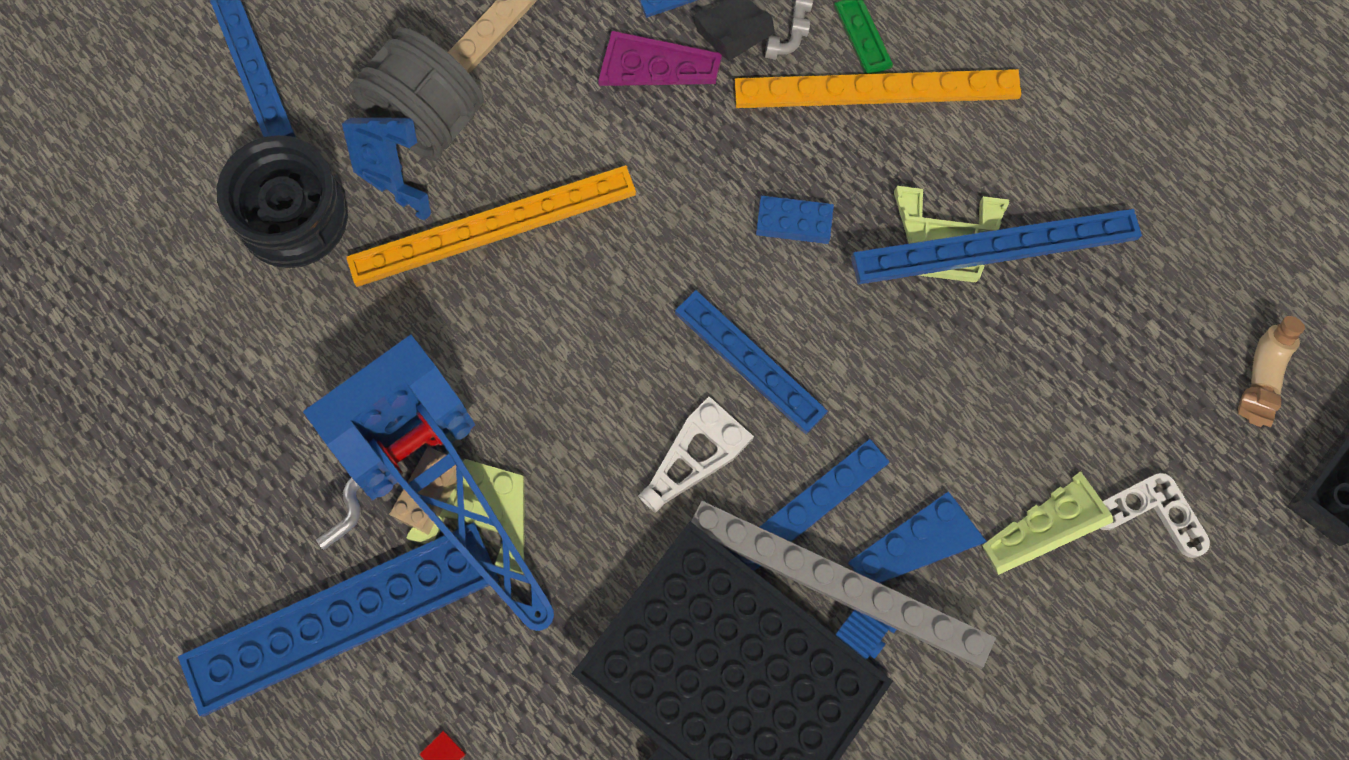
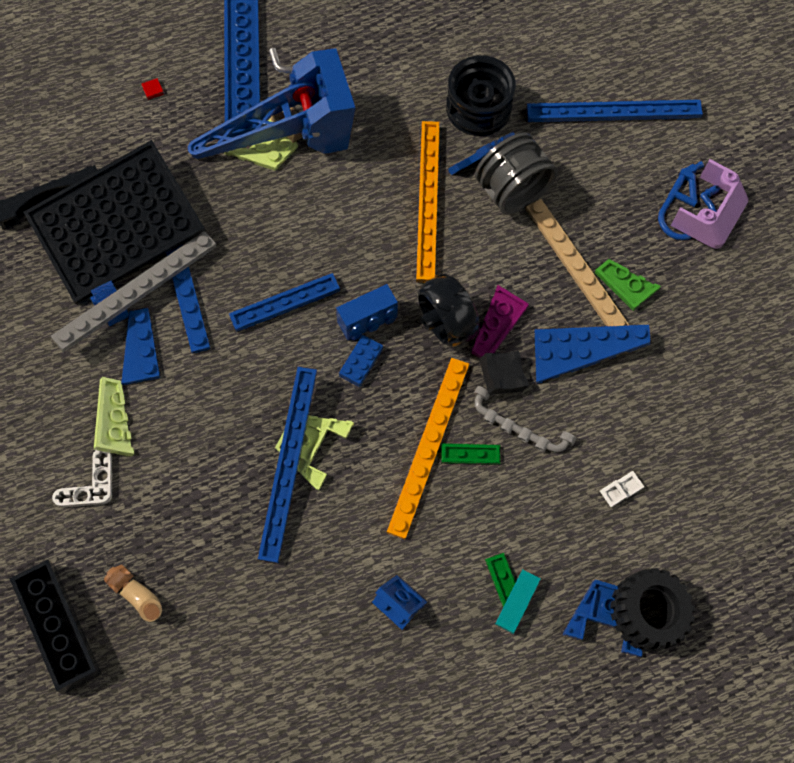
camera: 110 degrees right, 5 degrees down
(685, 108) = (448, 310): none -> black wheel
(718, 428) = (254, 273): white plate -> none
(725, 228) = (367, 312): none -> blue brick
(1105, 42) = (398, 601): none -> blue bracket

